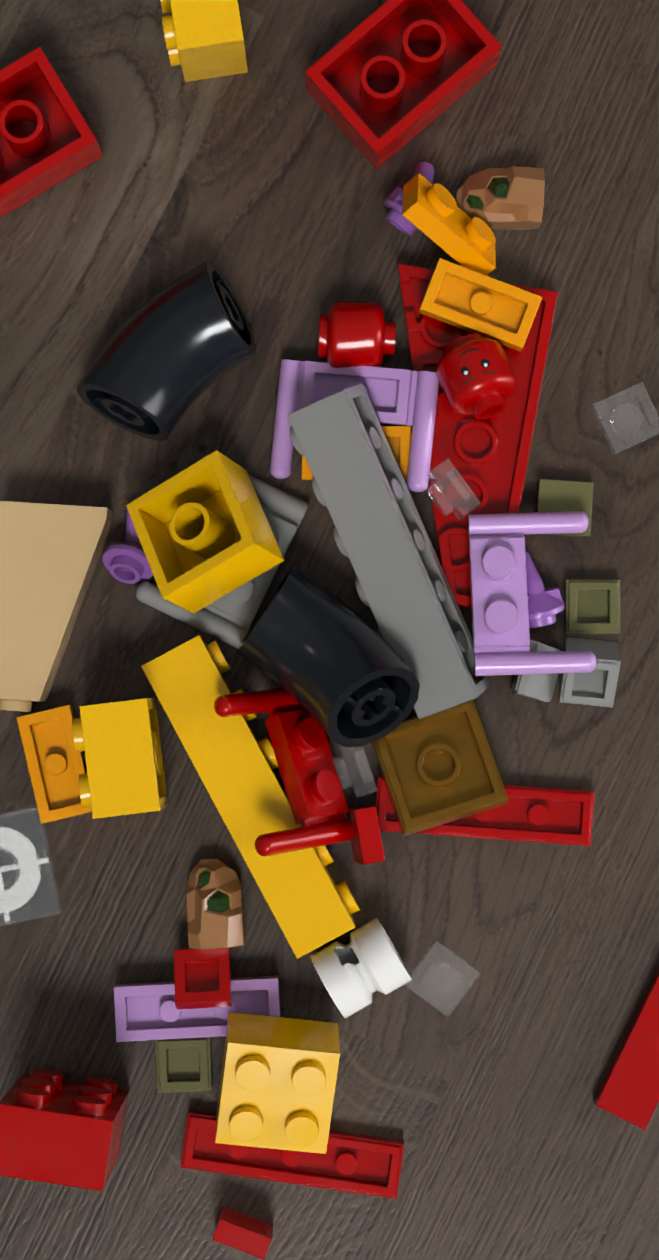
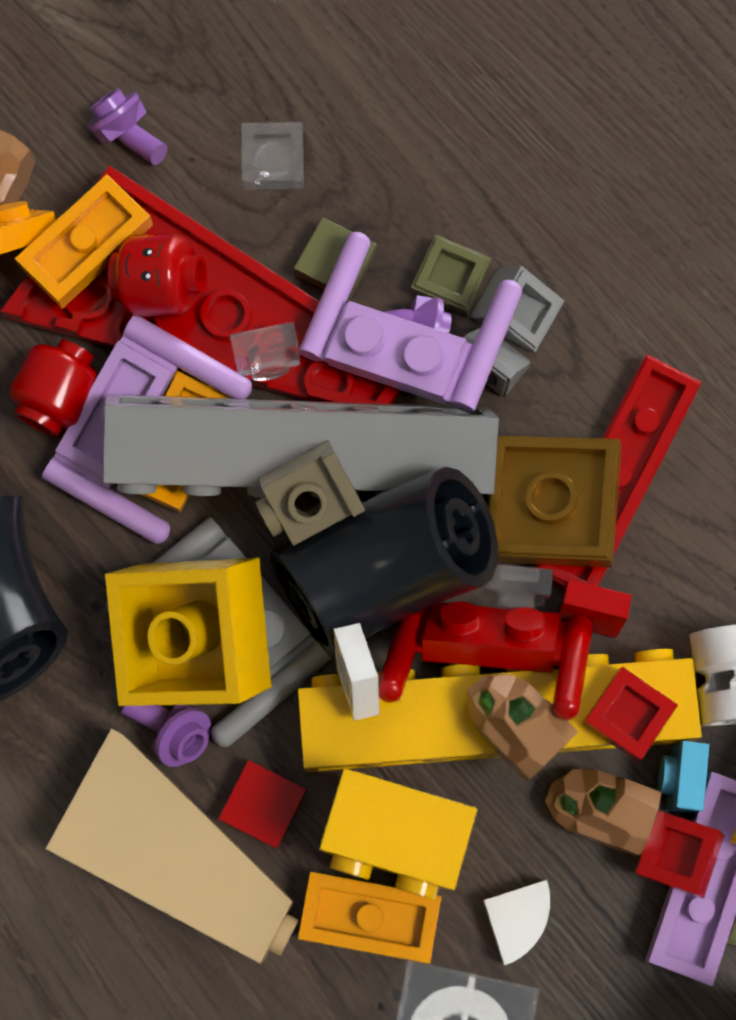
camera: 70 degrees left, 10 degrees down
(105, 876) = (518, 919): none -> white tile
(106, 646) = (263, 804): none -> red tile
(227, 674) = (356, 671): none -> white tile
(242, 813) = (517, 722): none -> medium nougat rock
(264, 958) = (684, 777): none -> medium azure plate
(288, 896) = (630, 714): none -> red tile
(362, 570) = (314, 472): none -> dark tan brick
(604, 277) = (117, 118): none -> medium lavender plate

